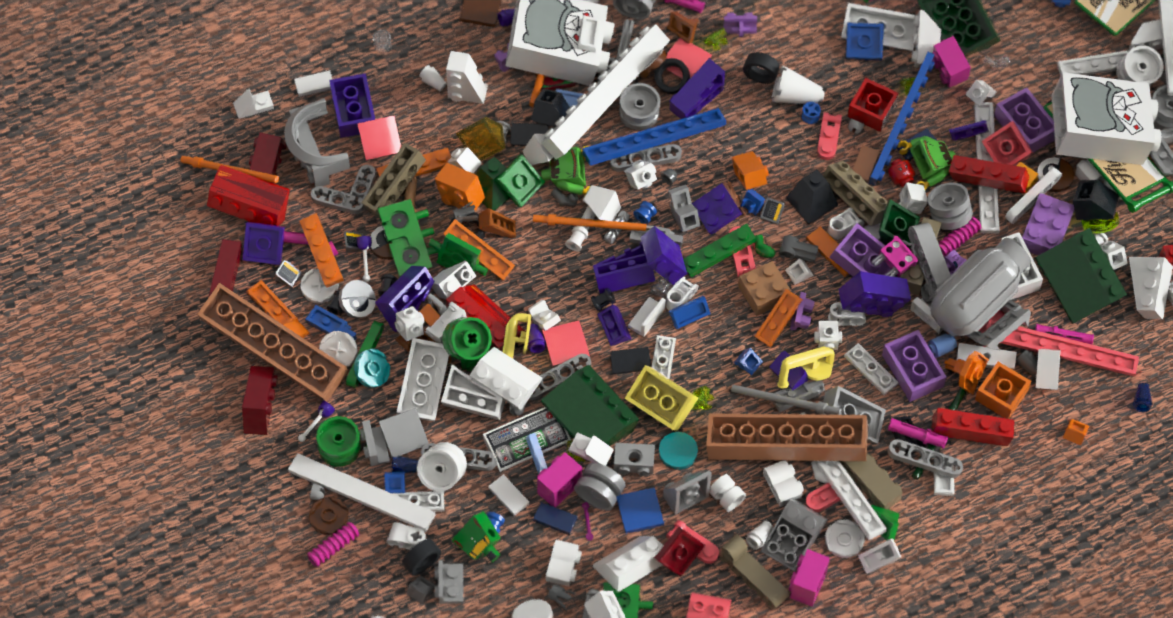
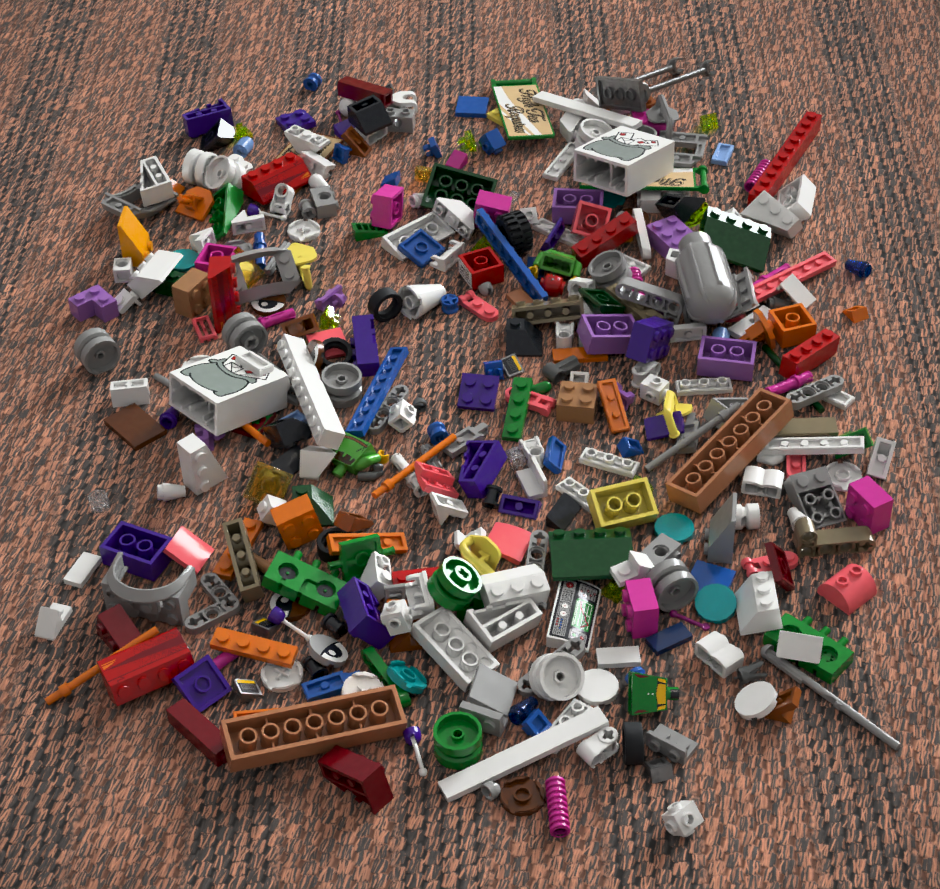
camera: 50 degrees left, 20 degrees down
(461, 214) = (322, 533): dark grey piece -> none
(467, 499) = (599, 687): none -> white tile
(520, 181) = (329, 486): tile -> none
(536, 452) = (599, 611): light blue tile -> none
(566, 275) = (445, 506): none -> white slope
(586, 248) = (435, 480): none -> coral slope
(603, 202) = (403, 447): white slope -> none
(614, 529) = (715, 603): none -> teal tile
(663, 255) = (506, 432): dark purple brick -> none
(682, 208) = (460, 412): light grey brick -> none
(719, 365) = (609, 462): none -> white tile
(750, 170) = (466, 355): orange brick -> none
(873, 69) = (449, 257): none -> white hinge
(898, 255) = (630, 309): dark pink piece -> none
(936, 99) = (516, 230): none -> black tyre

